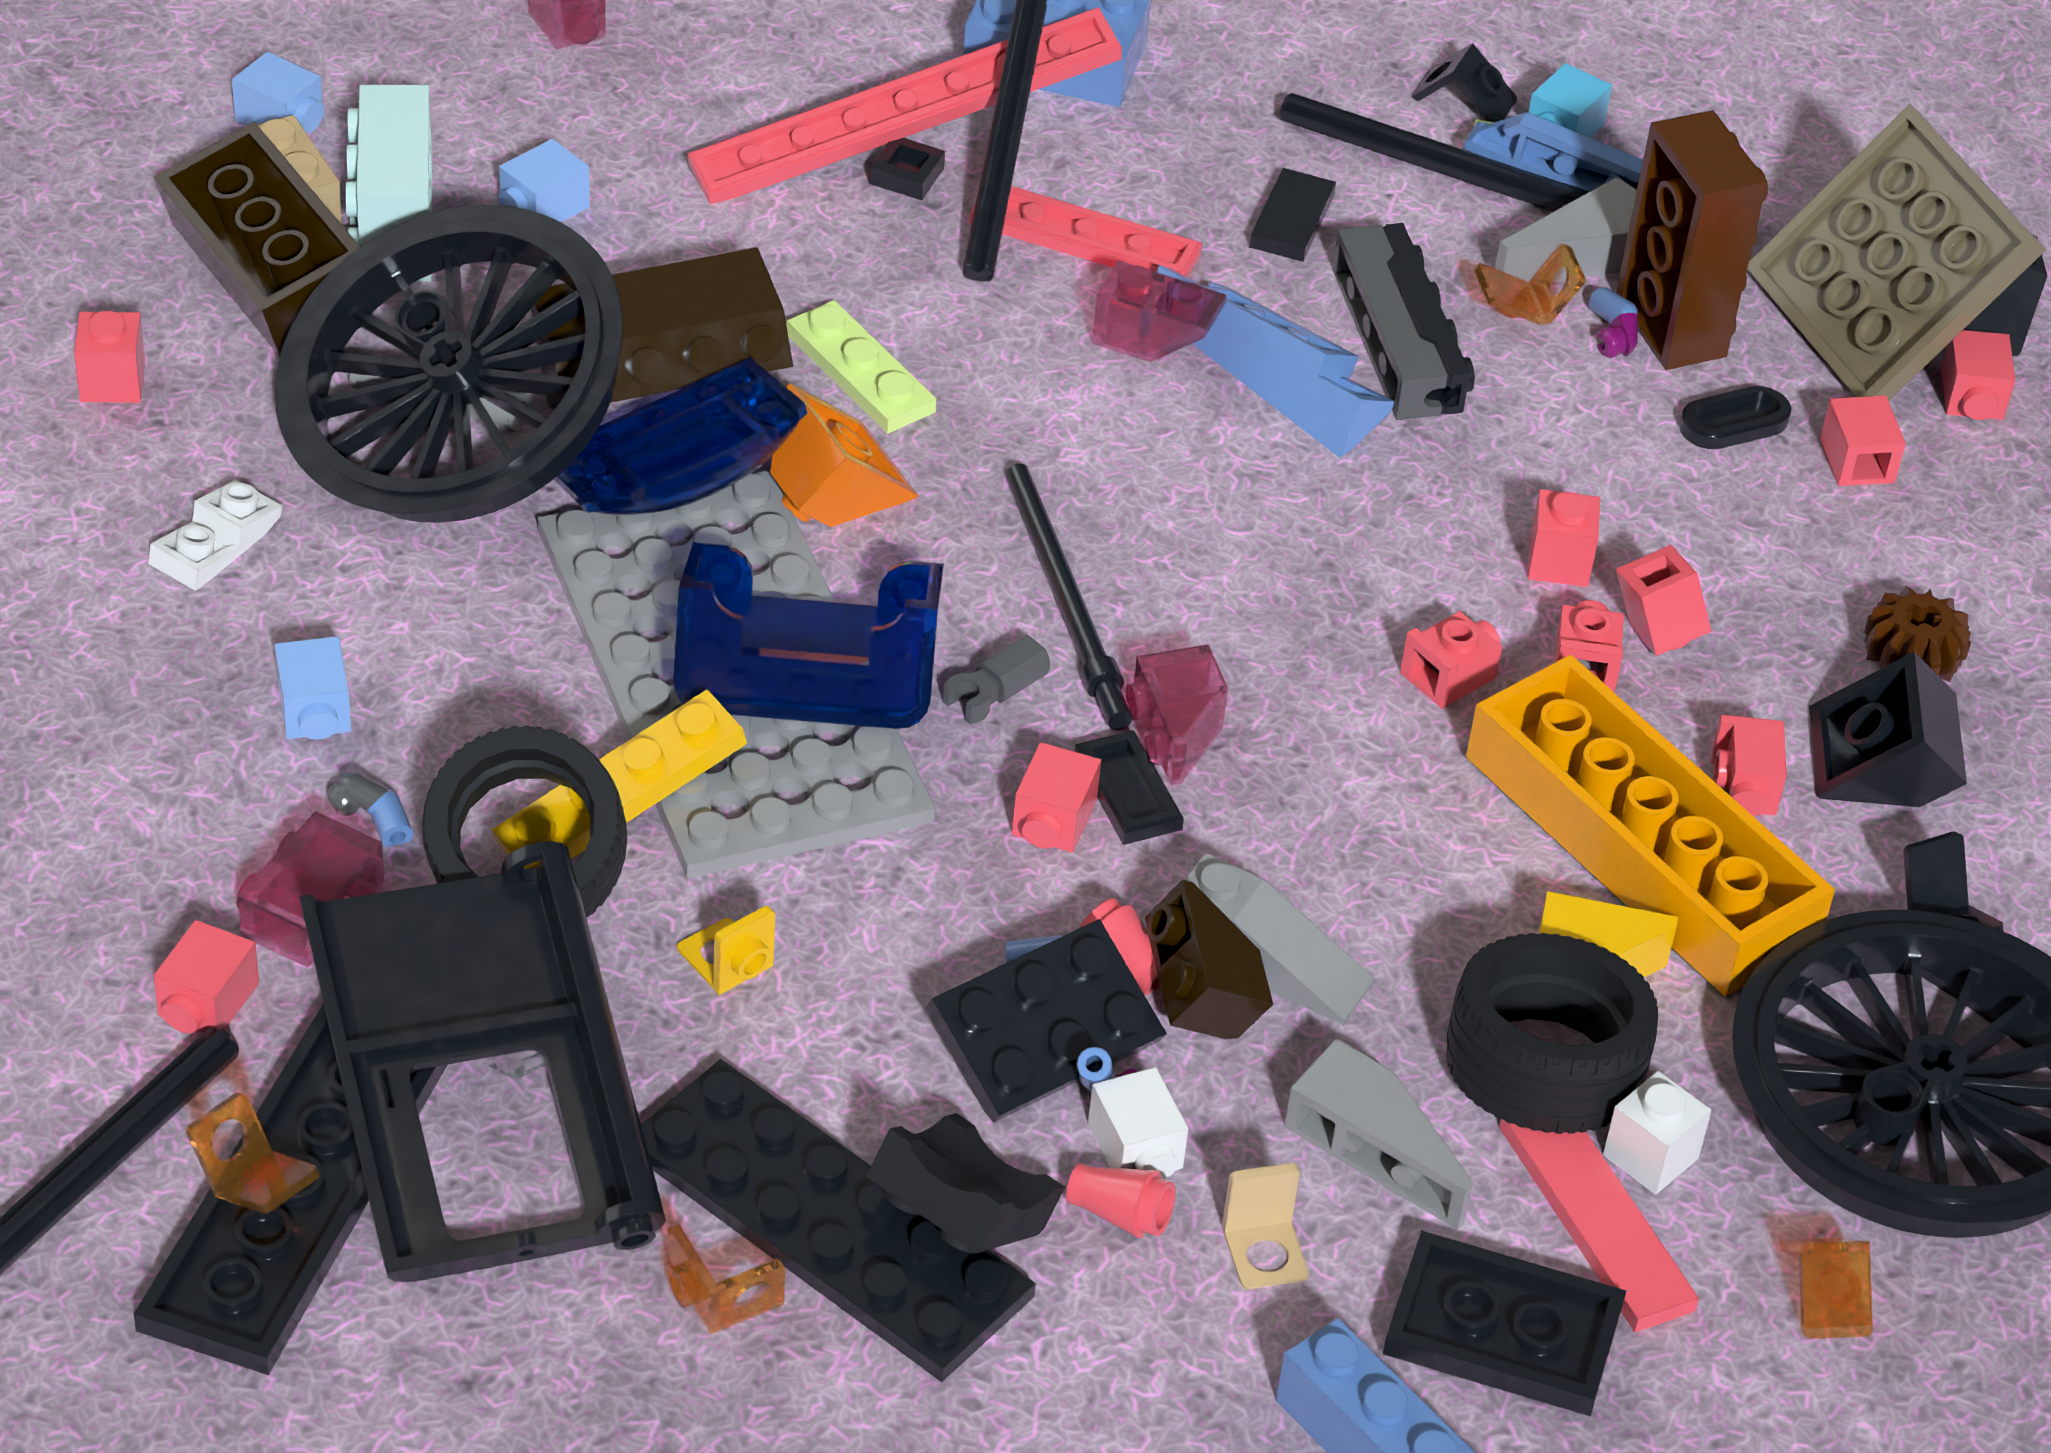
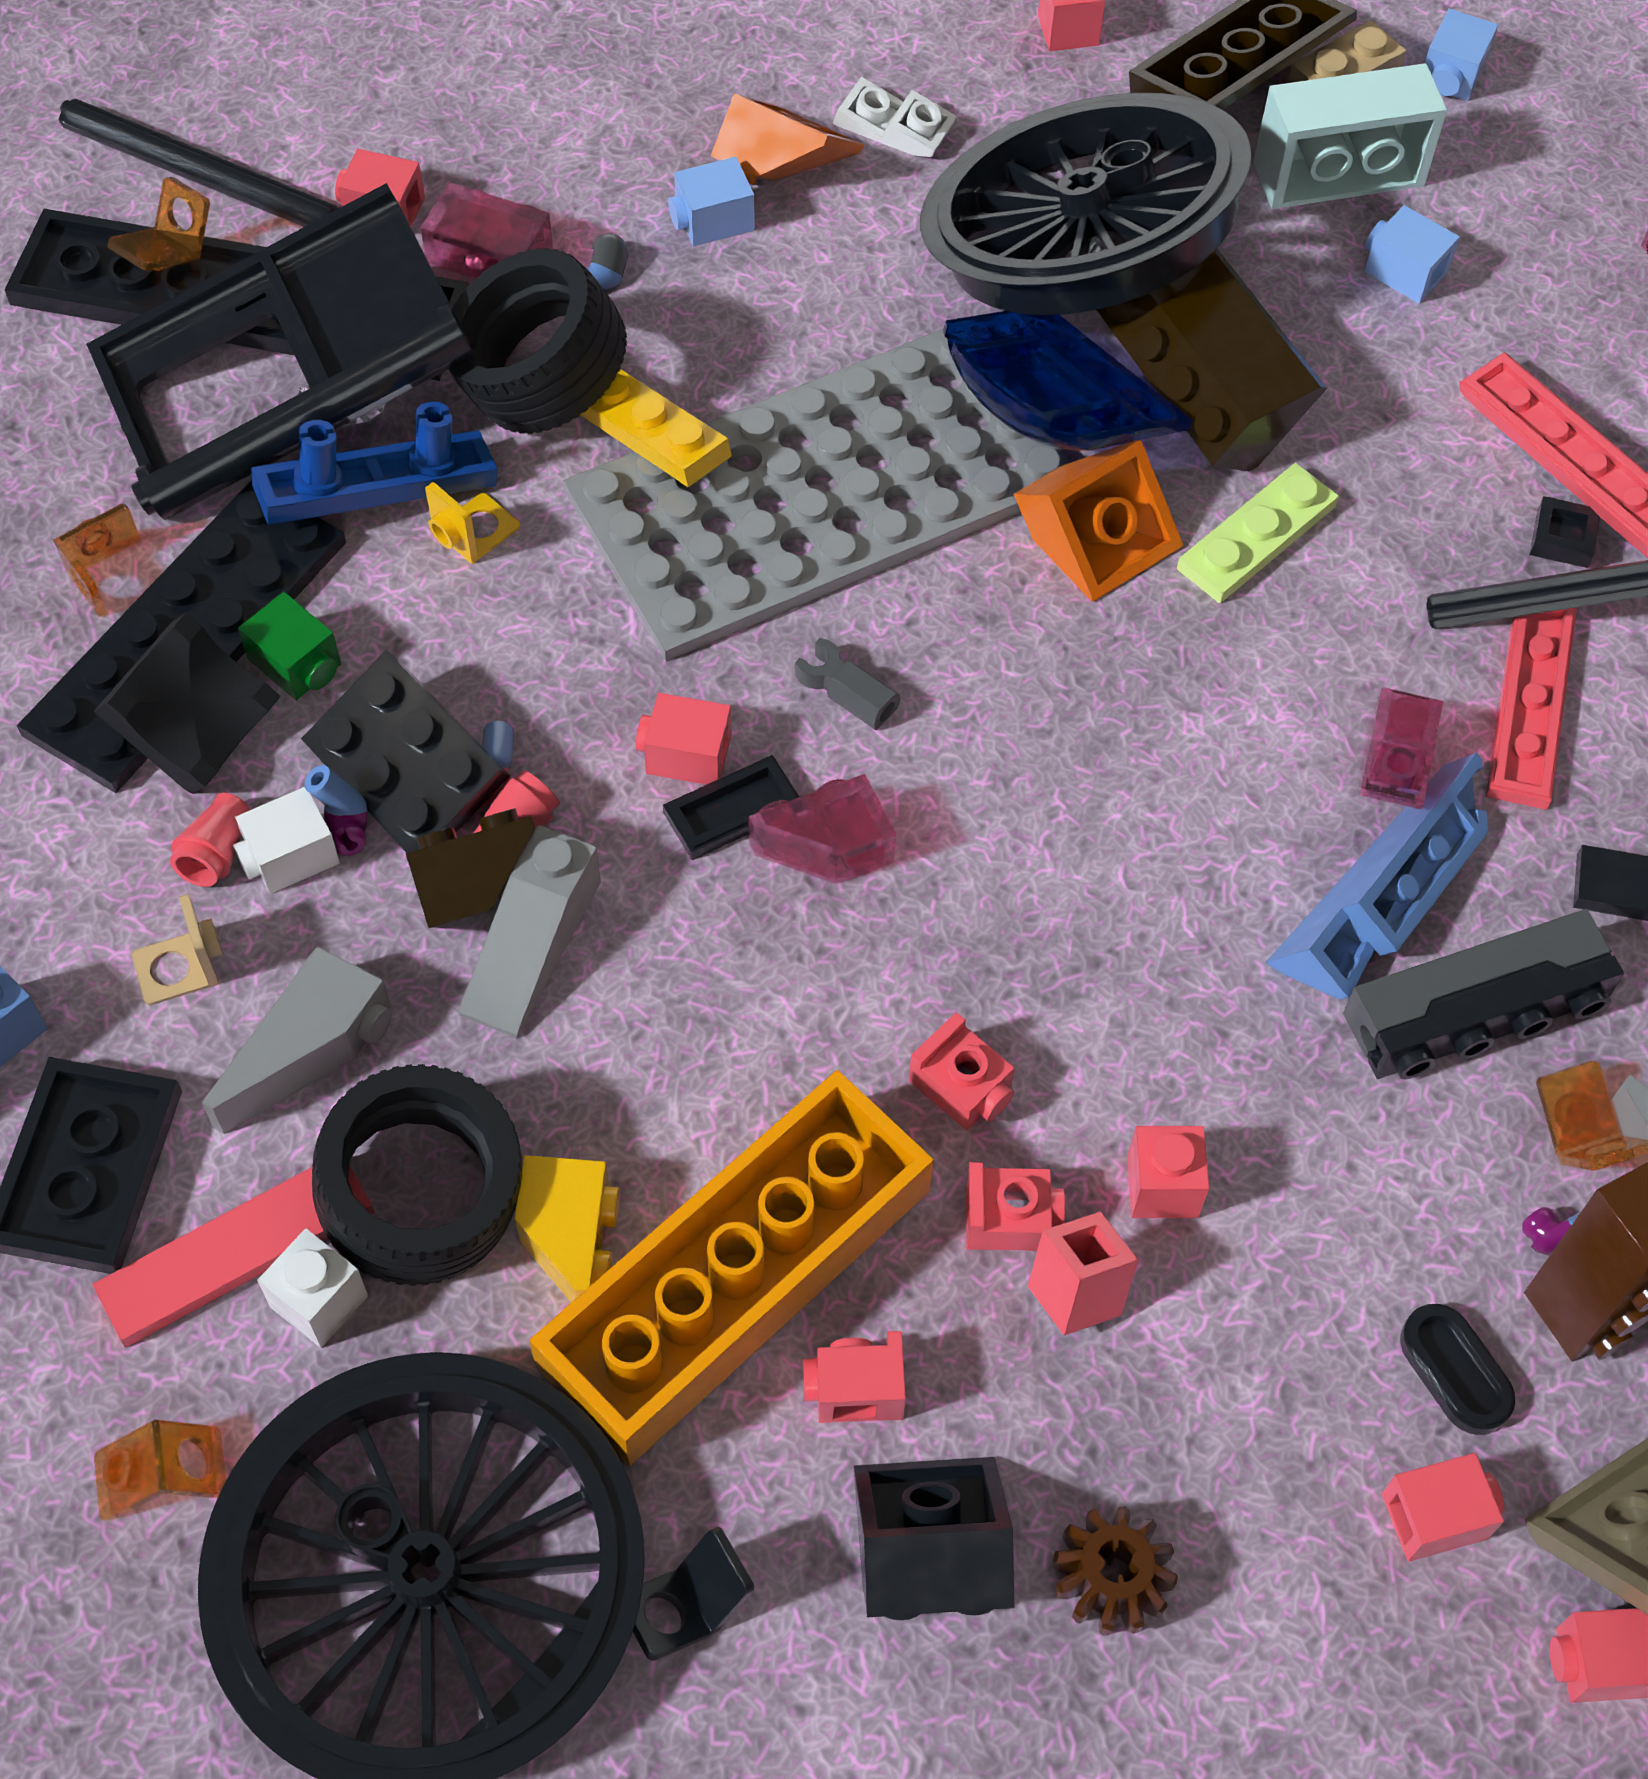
camera: 85 degrees right, 15 degrees up
(239, 620) = (777, 141): none -> orange slope
(663, 1007) = (375, 476): none -> blue plate
(806, 654) = (817, 498): clear blue windscreen -> none
(879, 1098) = (290, 646): none -> green brick
(1098, 670) = (881, 767): black bar -> none

